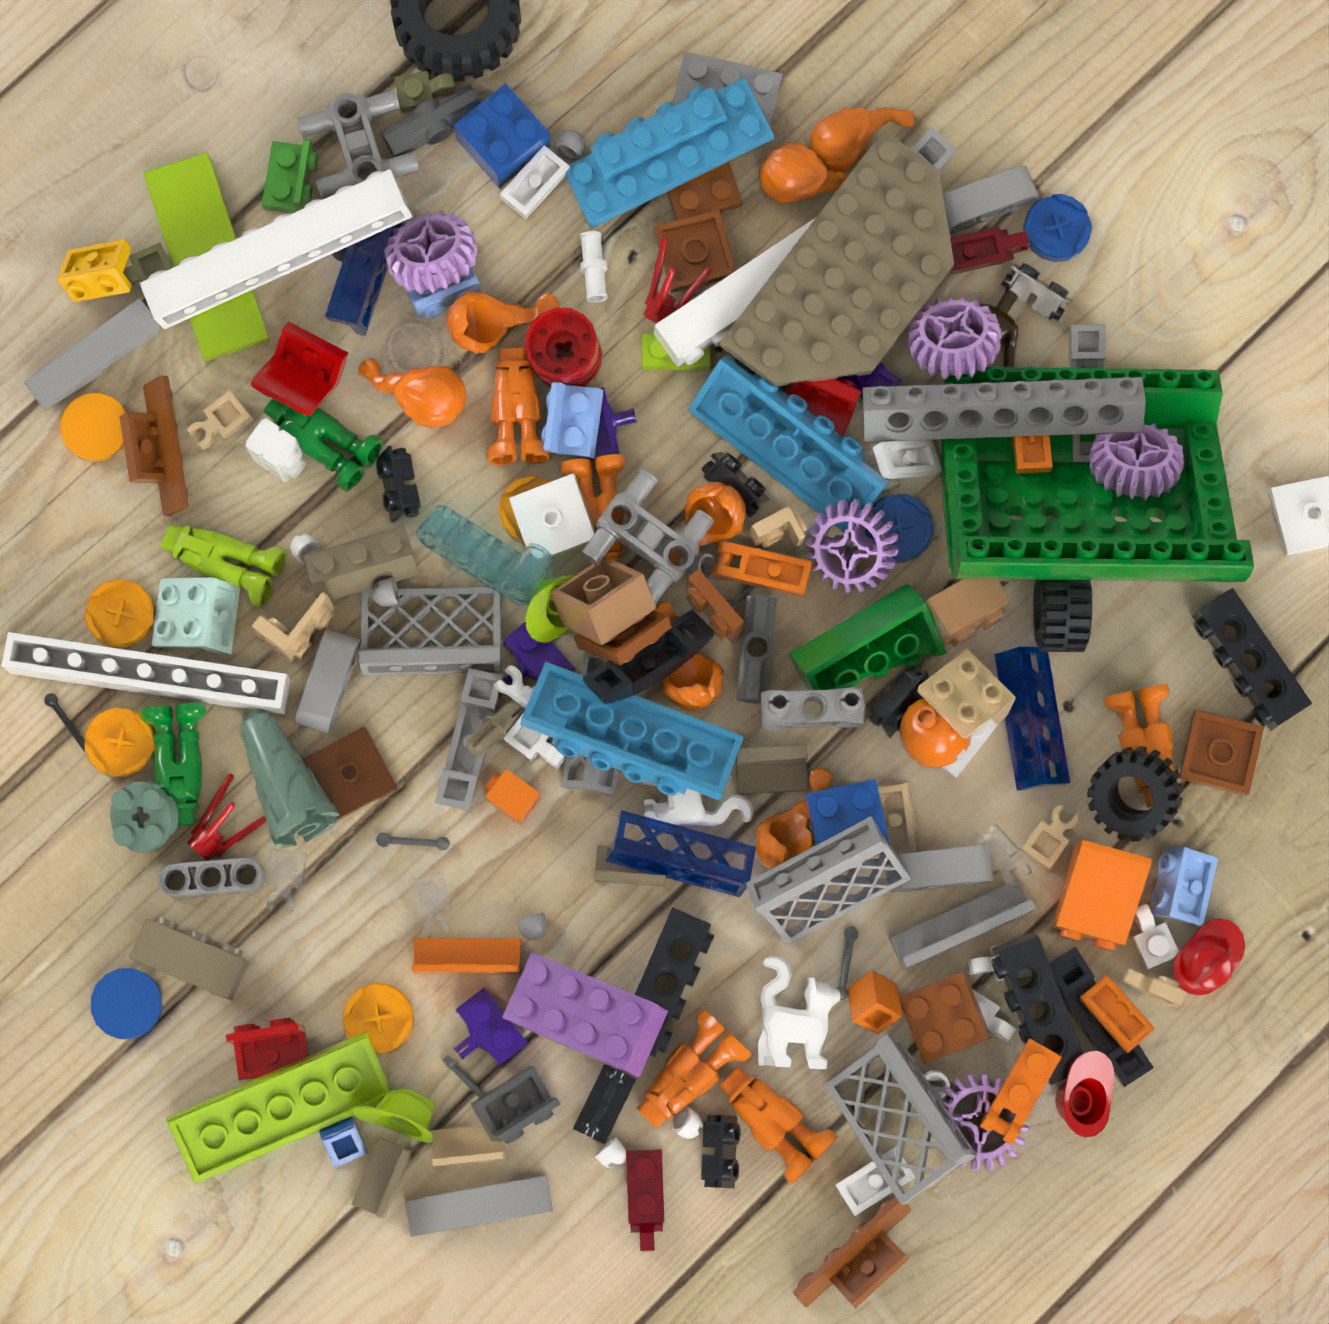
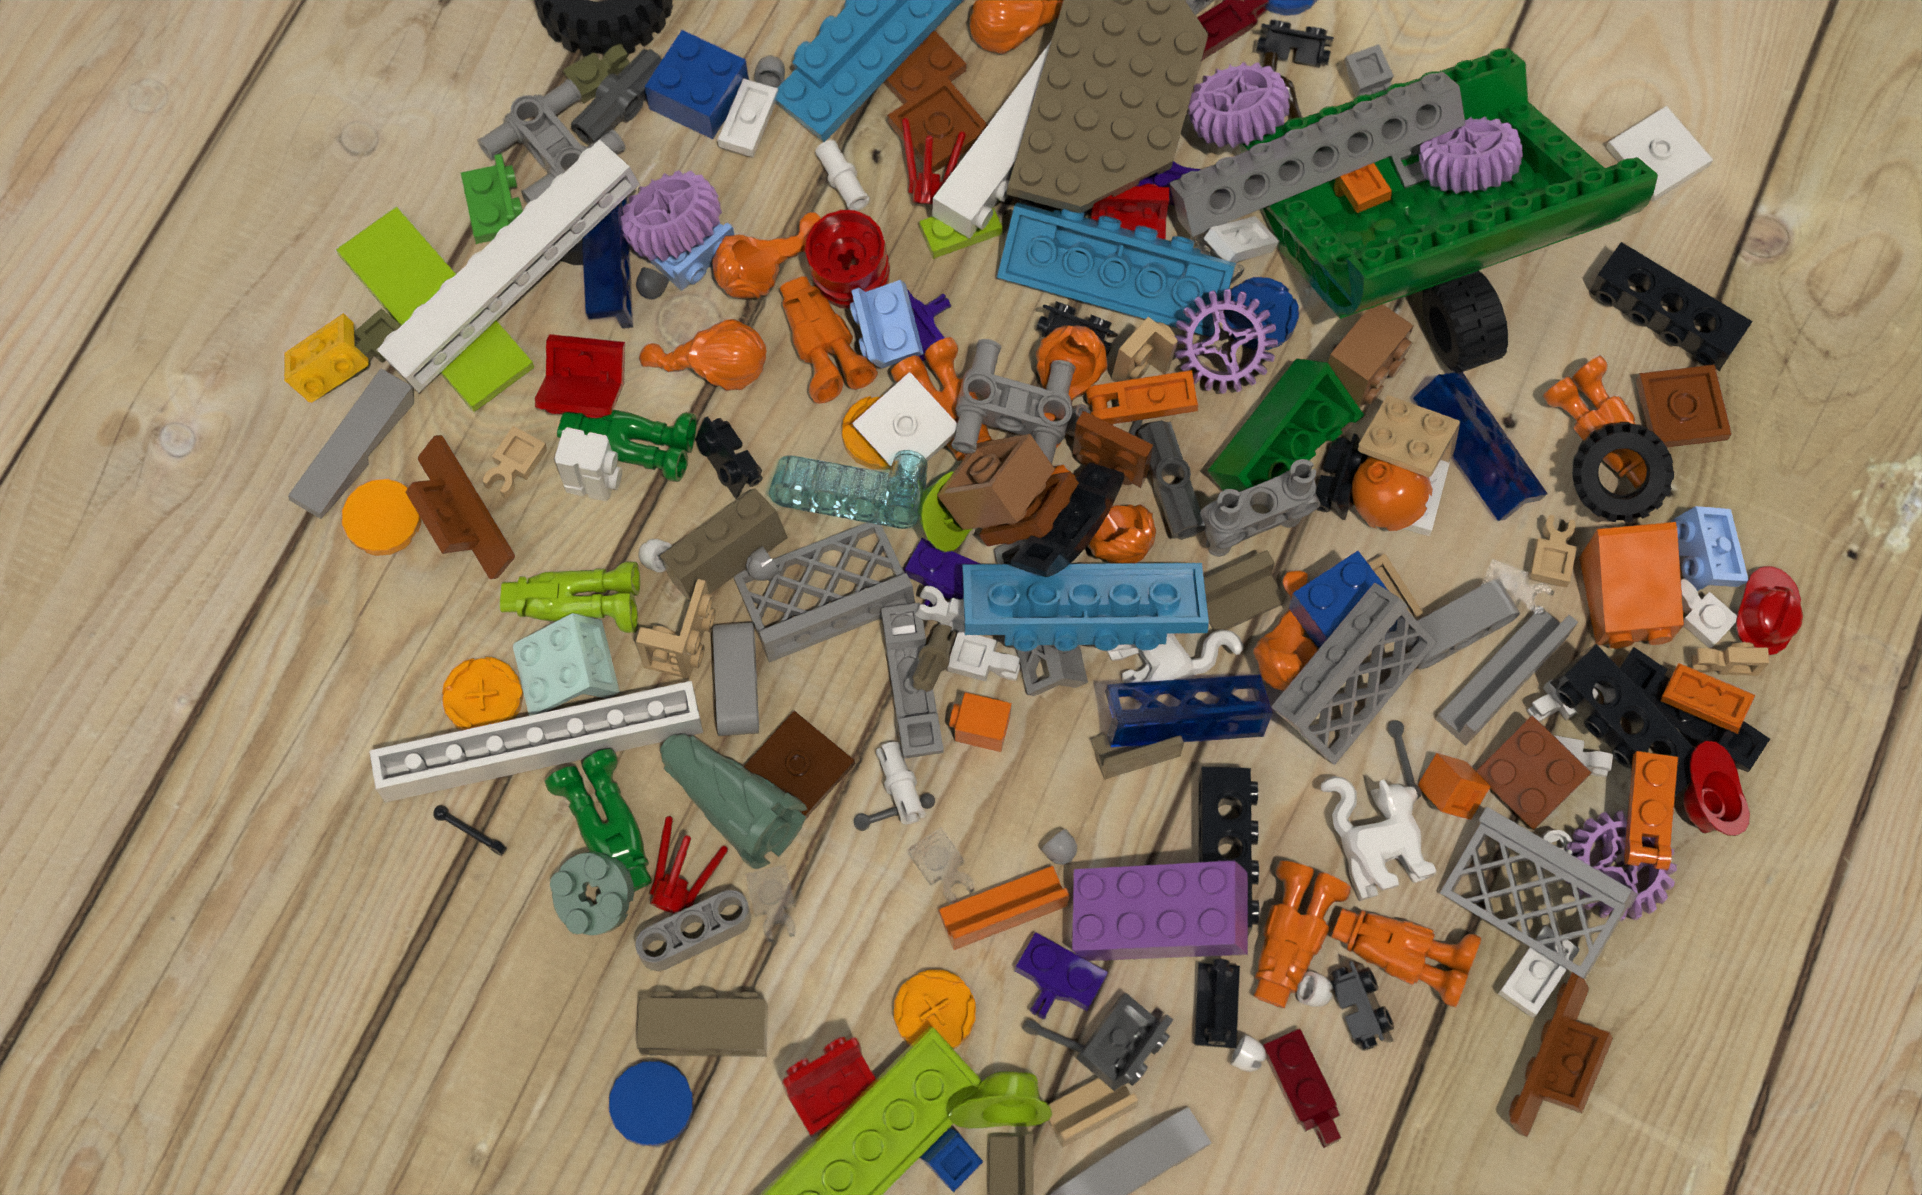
camera: 20 degrees left, 10 degrees down
(119, 743) = (534, 828): light orange tile -> none
(393, 305) = (651, 283): none -> dark grey hinge
(425, 822) = (900, 783): none -> white pin

